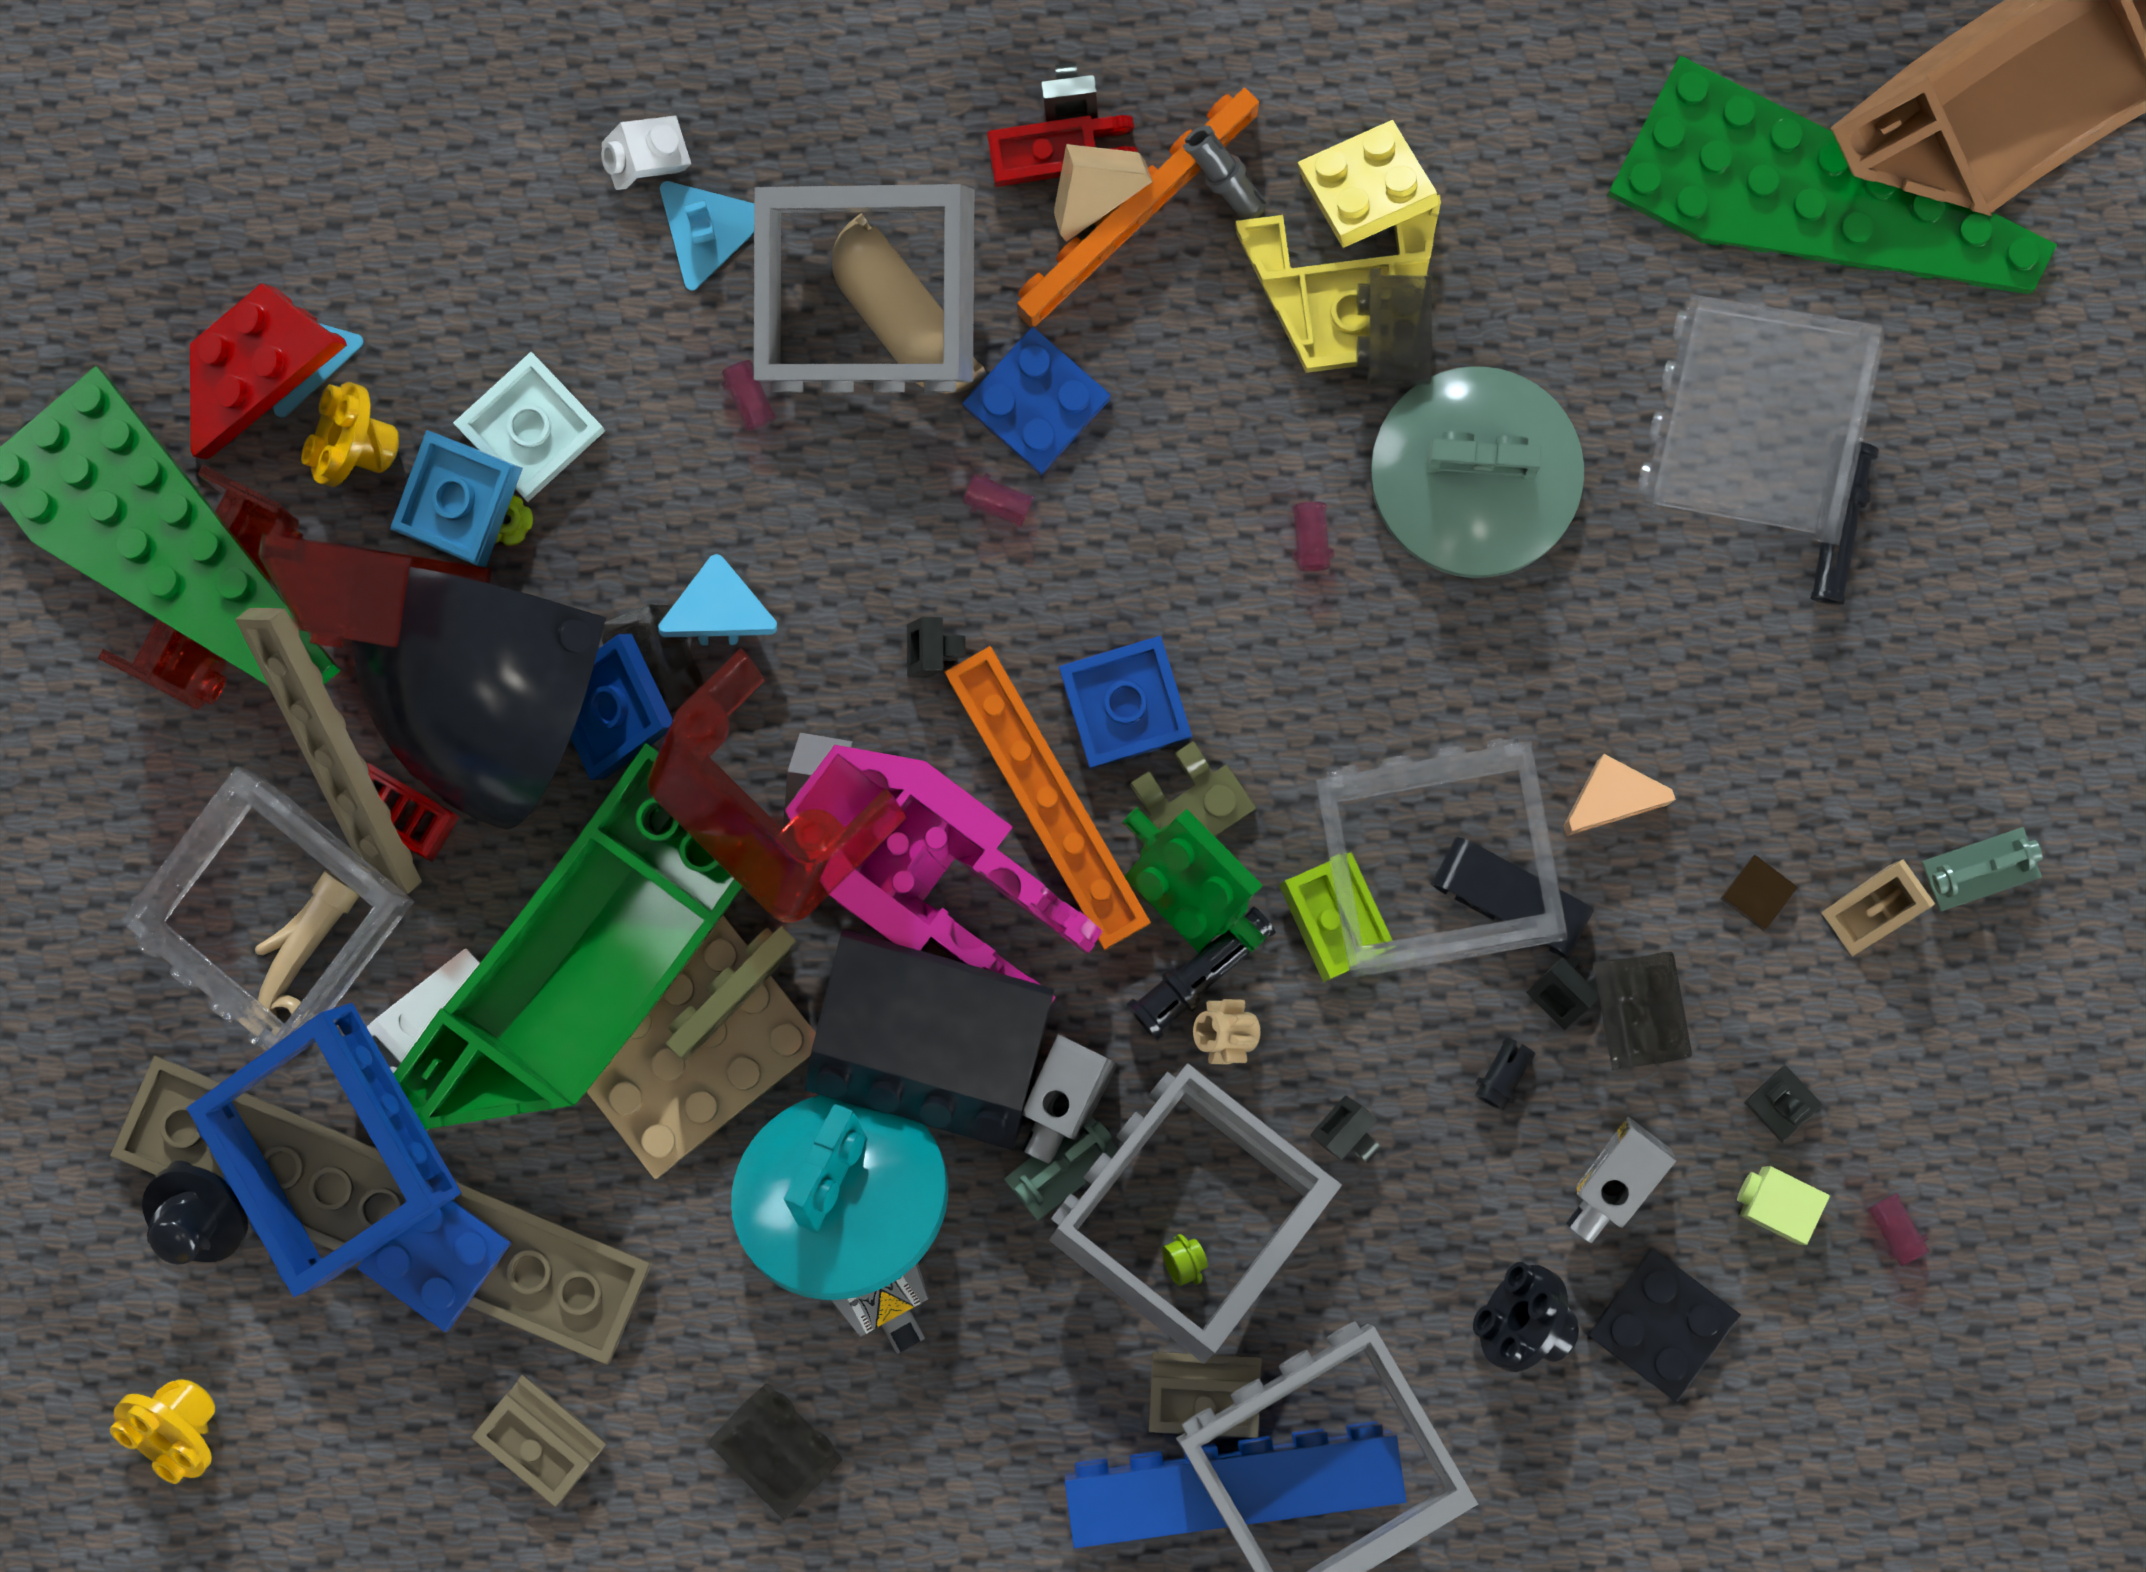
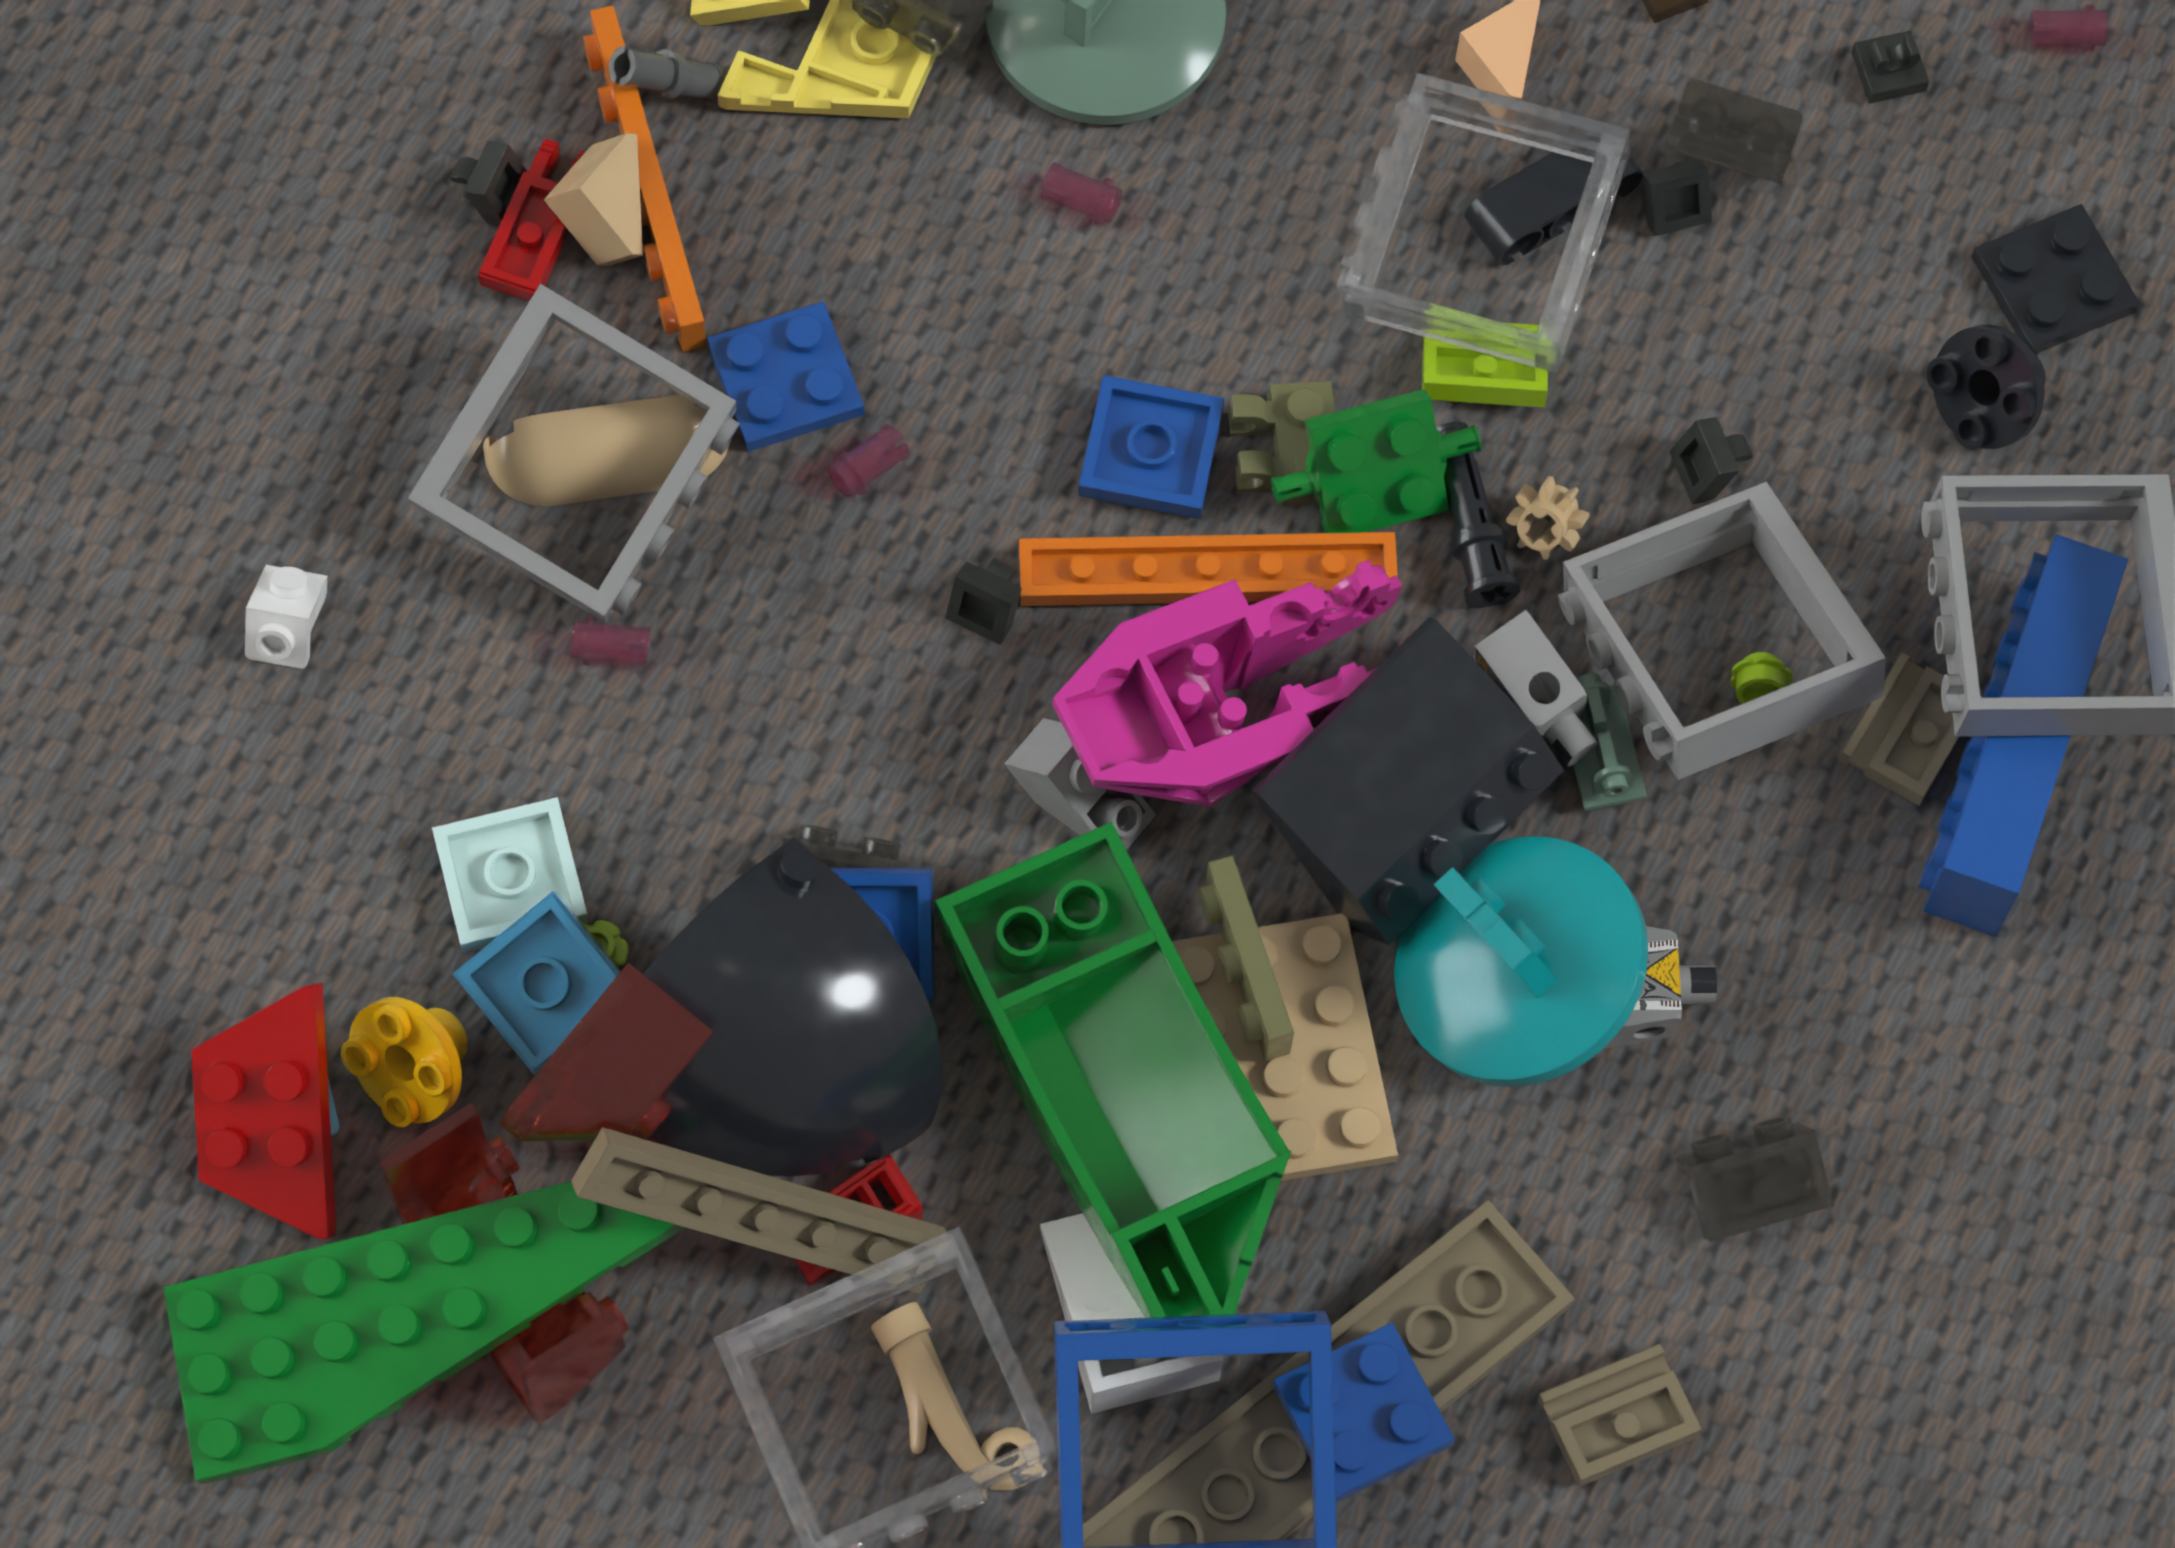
camera: 70 degrees left, 15 degrees down
(705, 229) = (403, 600): medium azure piece -> none
(717, 606) = (823, 776): medium azure piece -> none
(780, 868) = (1082, 827): clear red windscreen -> none
(1504, 1076) = (1735, 301): black pin -> none
(1629, 1157) = (1892, 229): light grey torso -> none
(1782, 1204) = (1992, 110): yellowish green brick -> none

